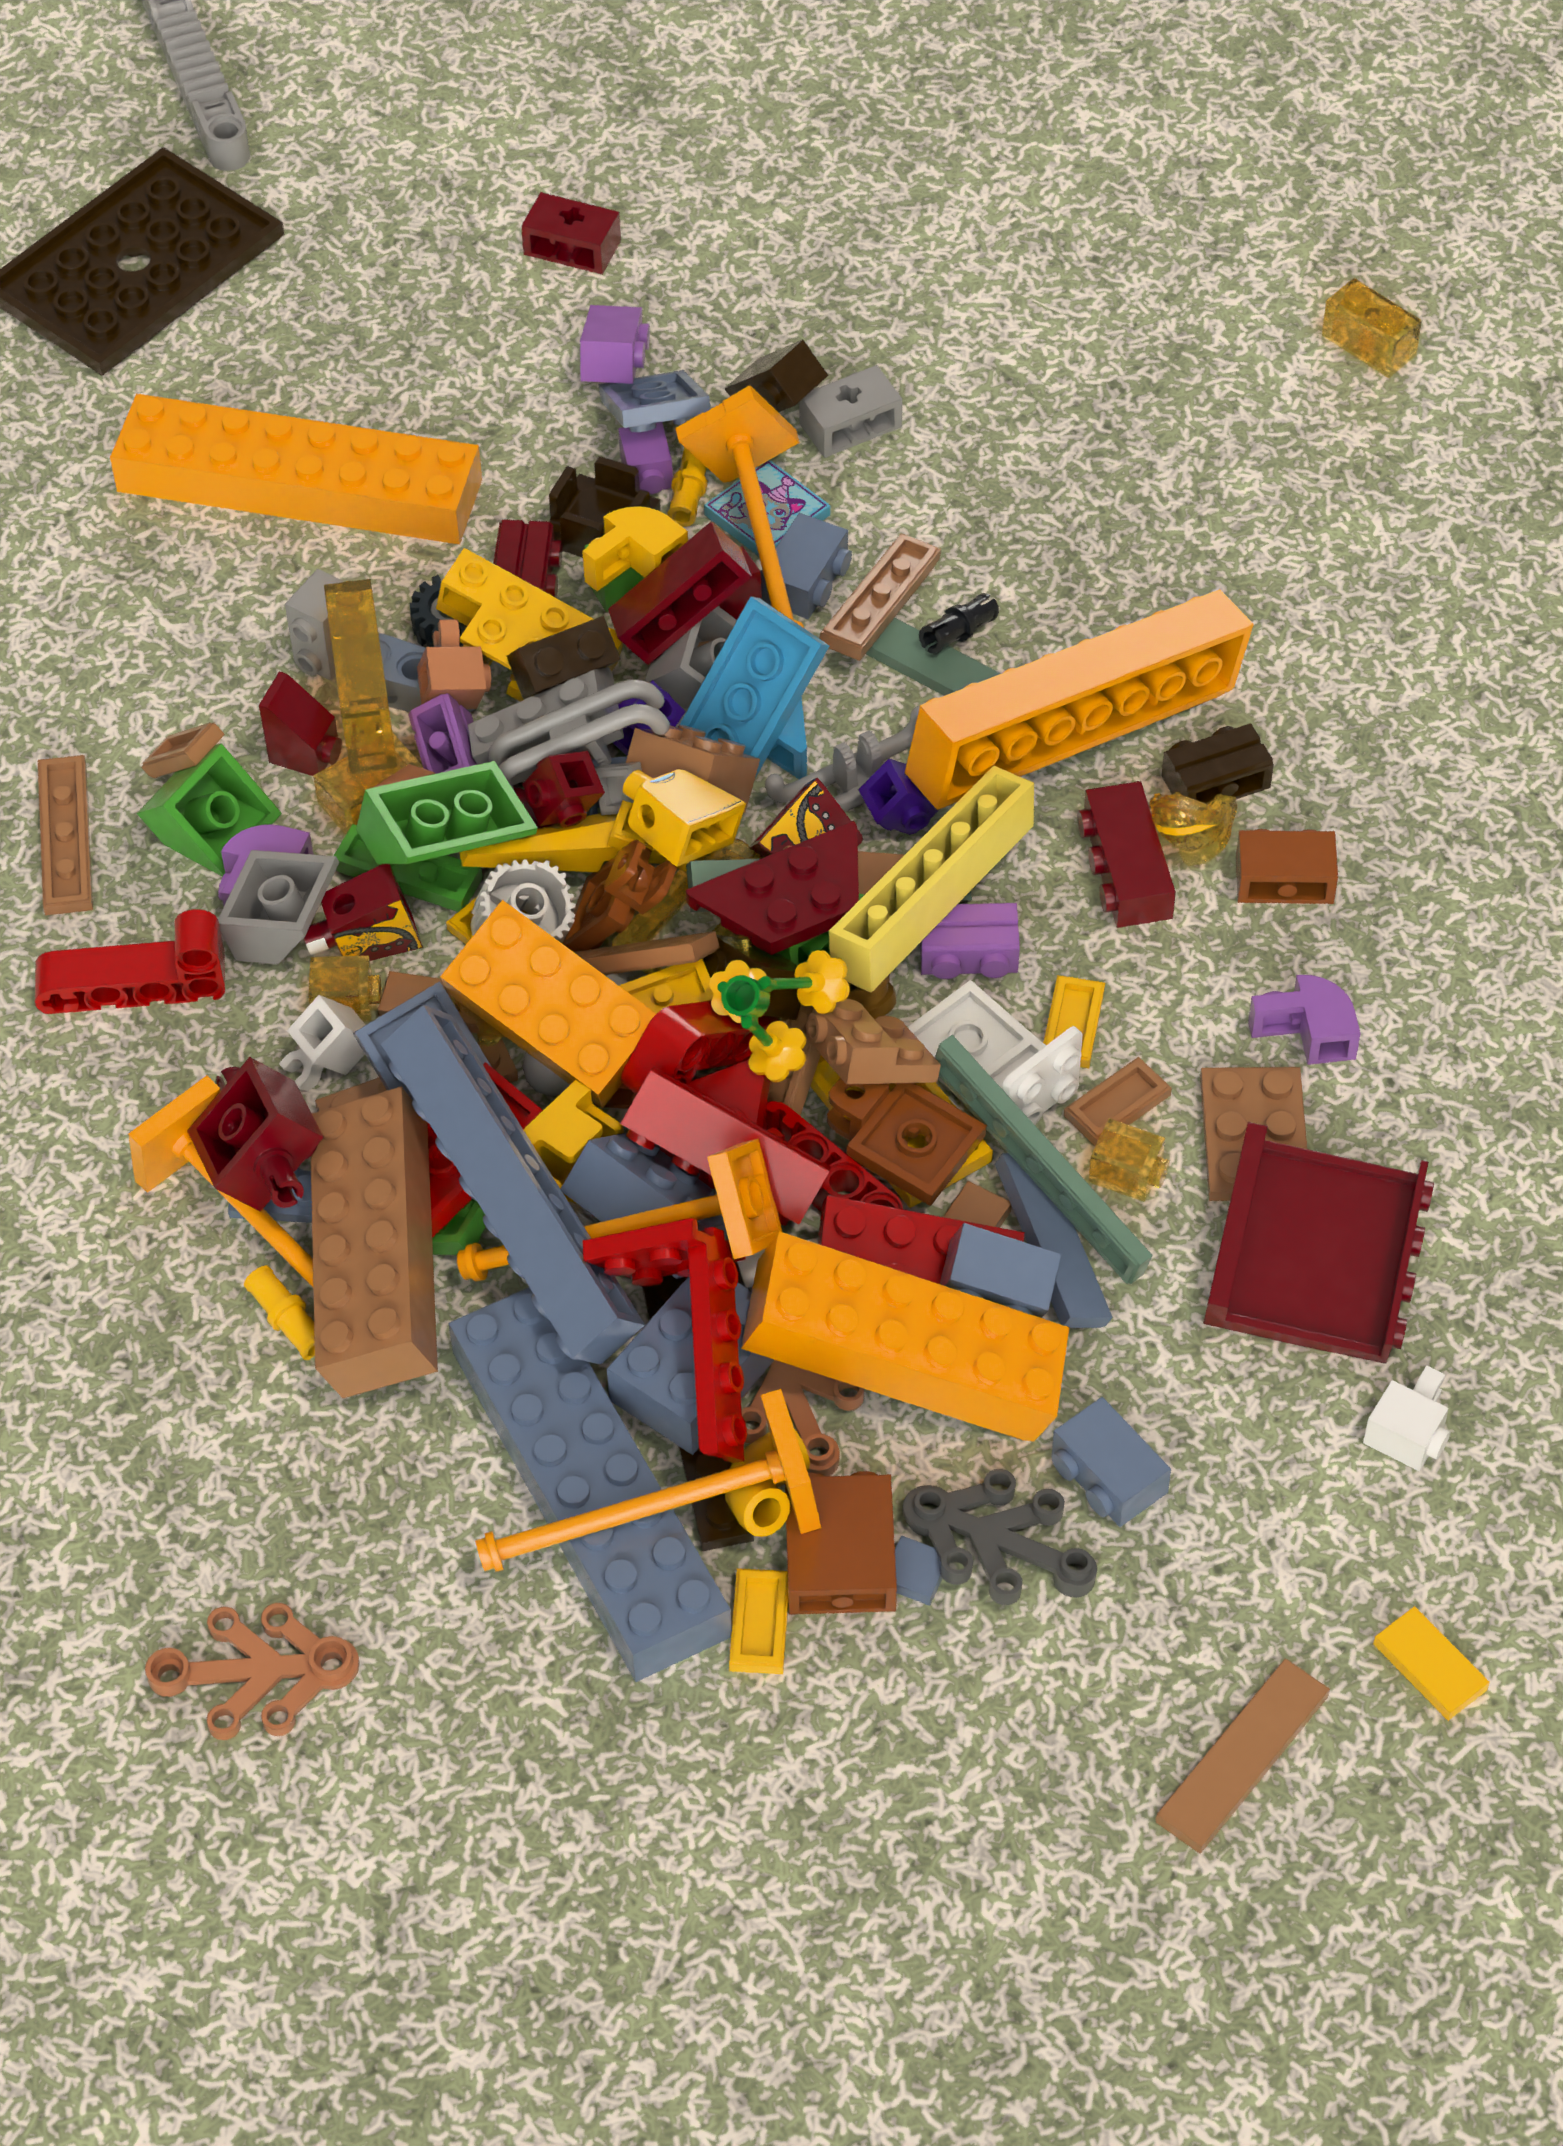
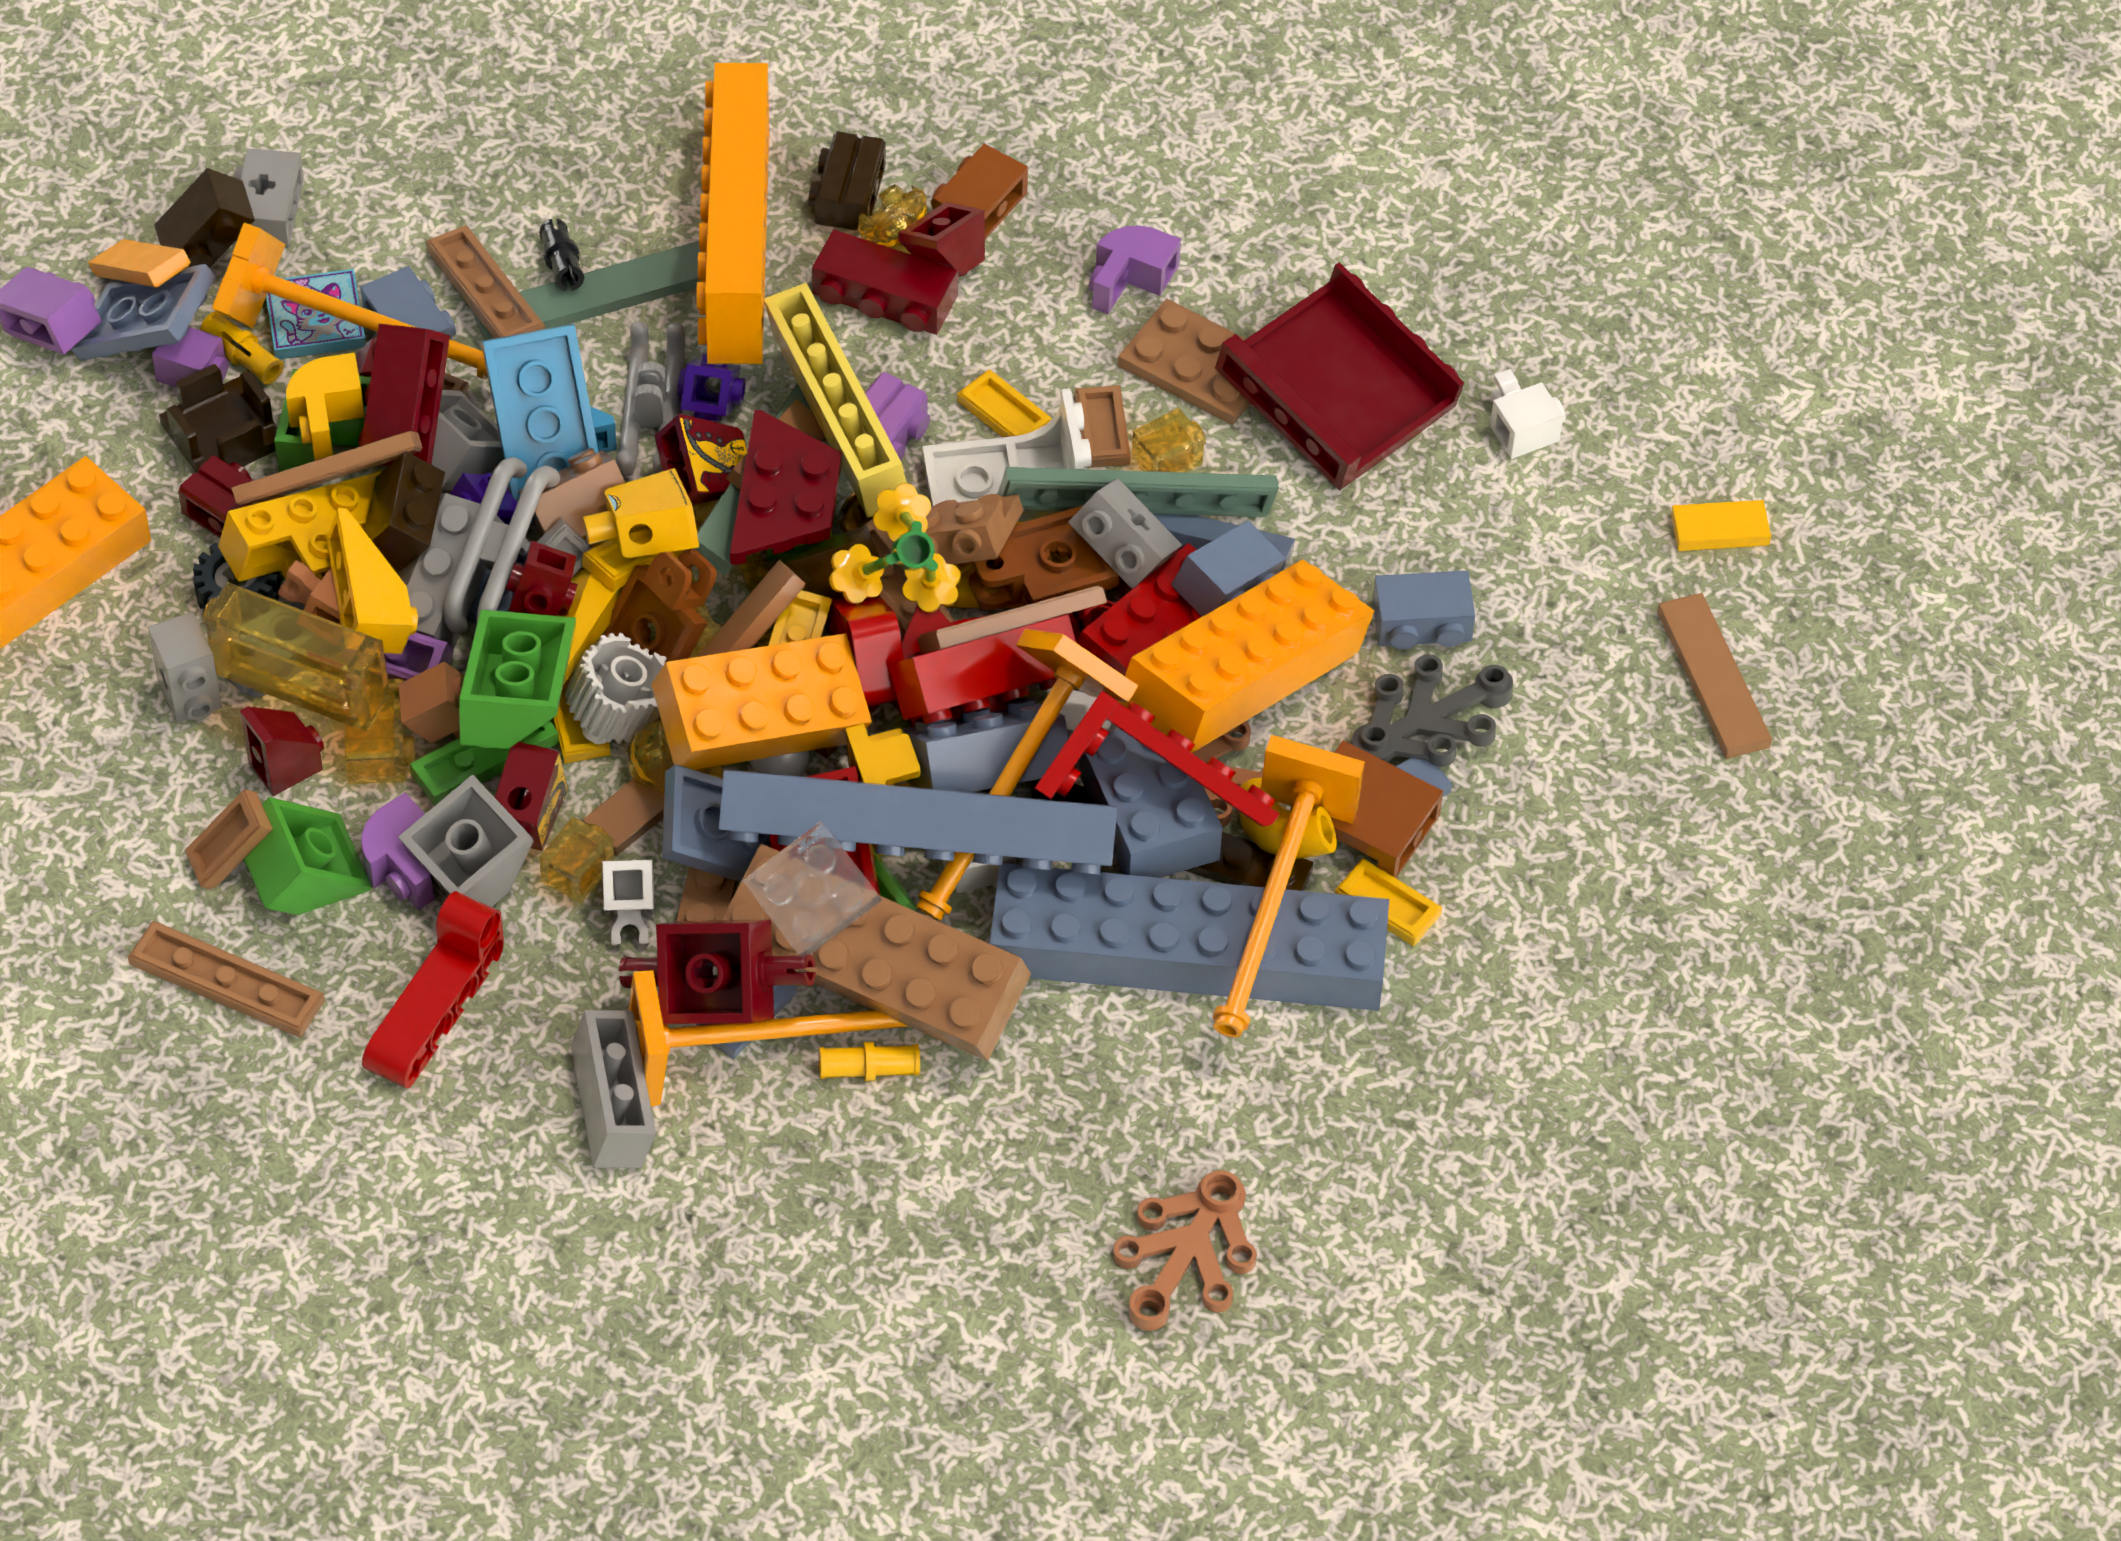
camera: 60 degrees left, 0 degrees up
(100, 1150) = (613, 1089): none -> light grey brick
(364, 1145) = (812, 890): none -> clear plate
(444, 688) = (367, 587): none -> yellow slope
(567, 587) = (327, 469): none -> medium nougat tile
(700, 368) = (139, 263): none -> light orange tile
(793, 1135) = (1011, 619): none -> medium nougat tile
(972, 1169) = (1124, 533): none -> light grey brick
(1201, 864) = (948, 236): none -> dark red slope

